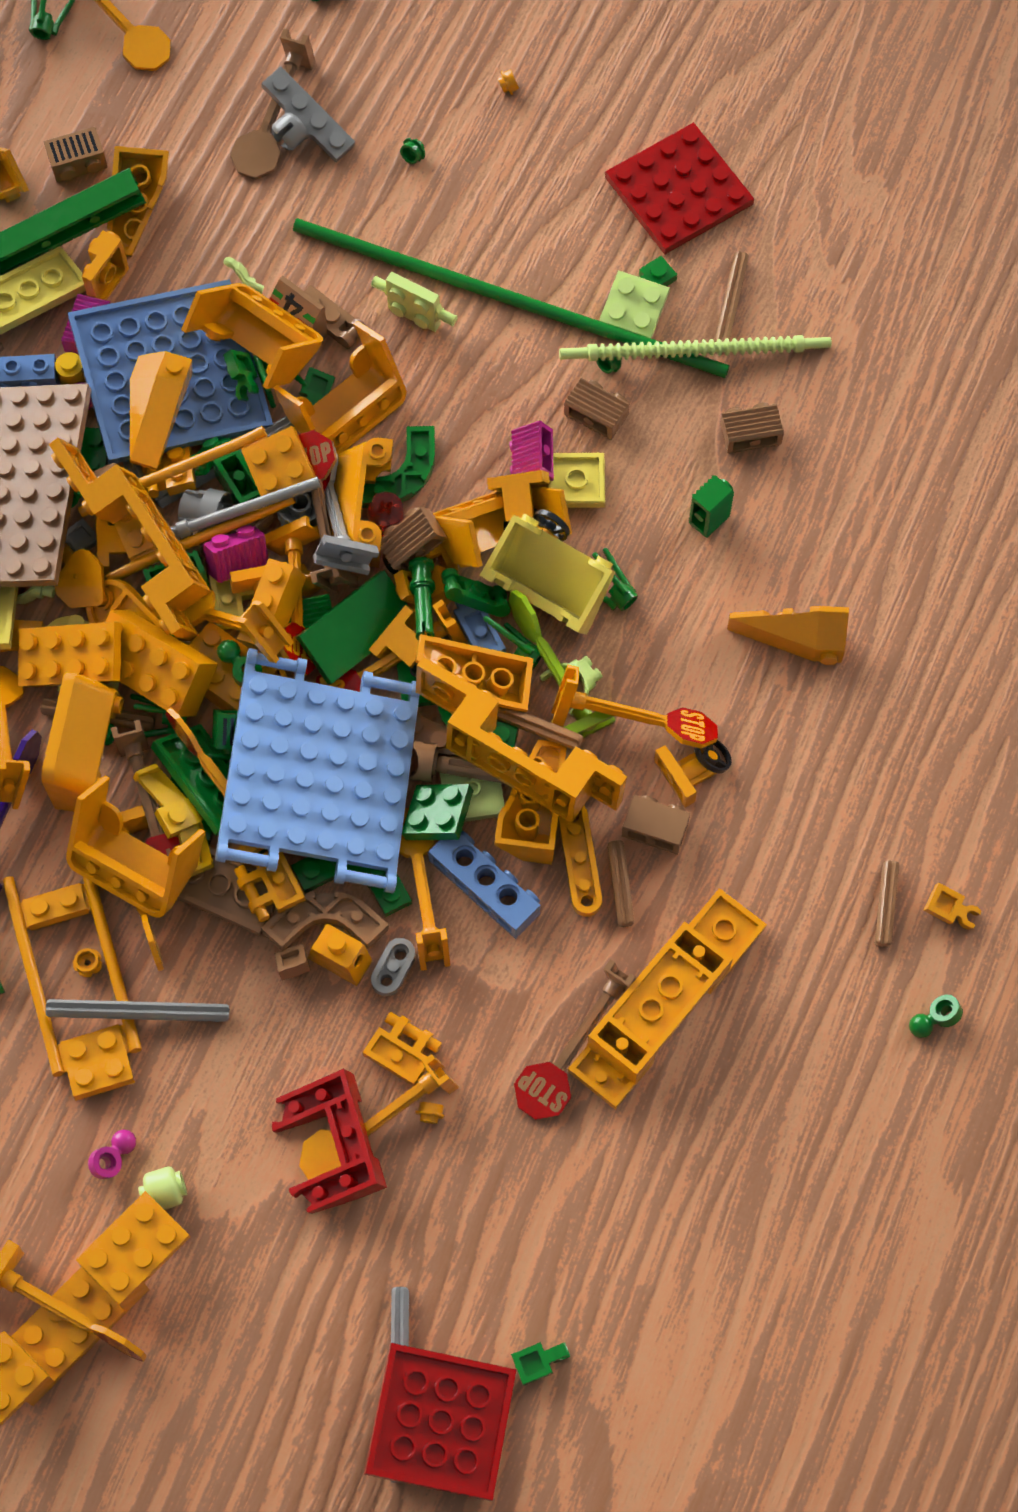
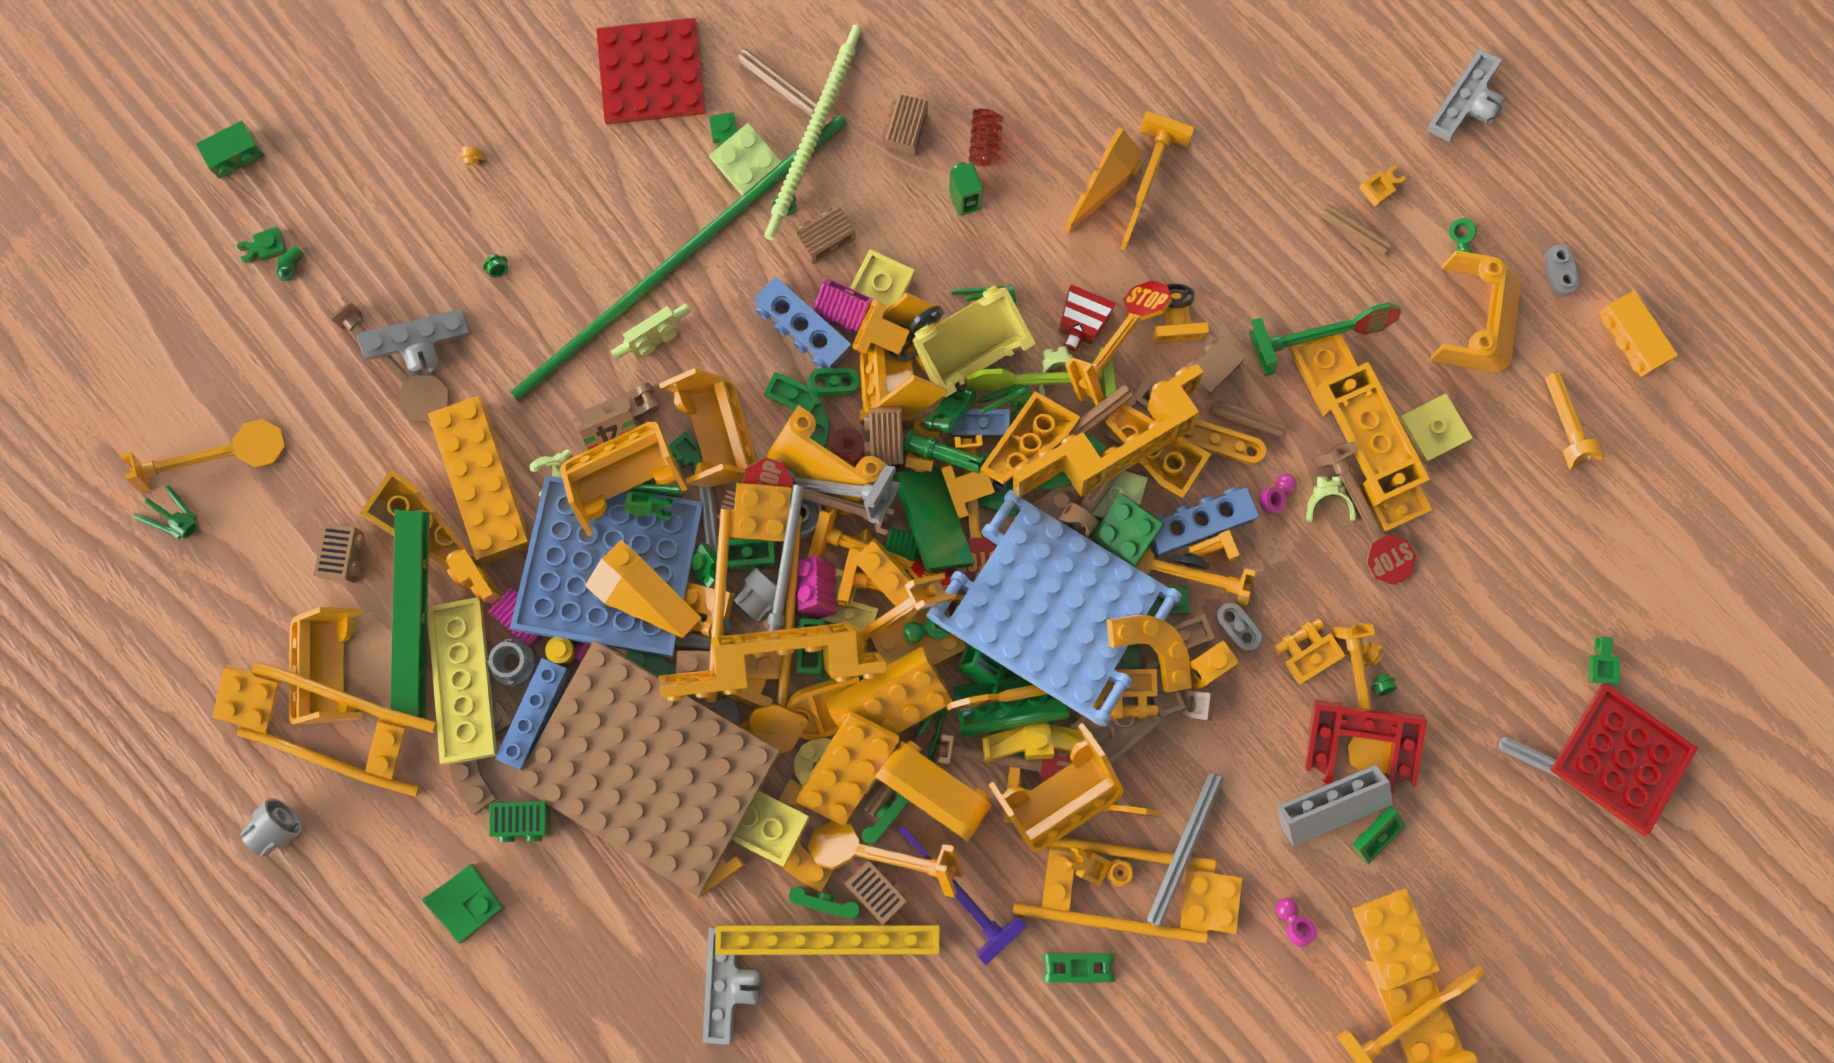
camera: 65 degrees left, 10 degrees up
(31, 719) = (887, 816): none -> green plate
(41, 333) = (499, 660): none -> light grey piece
(79, 930) = (1089, 866): none -> light orange plate
(164, 1186) = (1345, 893): yellowish green head -> none
(200, 231) = (480, 480): none -> light orange brick
(240, 1199) = (1378, 835): none -> green plate
(249, 1137) = (1334, 805): none -> light grey brick
(335, 875) = (1162, 638): none -> light orange plate
(403, 1139) = (1384, 684): none -> green plate
(452, 482) = (832, 381): none -> green plate
(466, 911) = (1194, 556): none -> light orange piece
(501, 390) = (777, 295): none -> medium blue brick
(569, 950) = (1274, 498): none -> dark pink plate
(587, 993) = (1328, 487): none -> yellowish green helmet
(641, 677) = (1084, 316): none -> red torso
(711, 1077) = (1435, 428): none -> light yellow plate
(765, 1235) = (1580, 448): none -> light orange piece
(770, 673) = (1165, 132): none -> light orange piece
(778, 502) = (984, 137): none -> clear red piece
(787, 949) = (1369, 321): none -> green piece
(867, 1090) = (1491, 348): none -> light orange windscreen
(931, 1244) = (1637, 333): none -> light orange brick
(963, 1135) = (1559, 269): none -> light grey plate

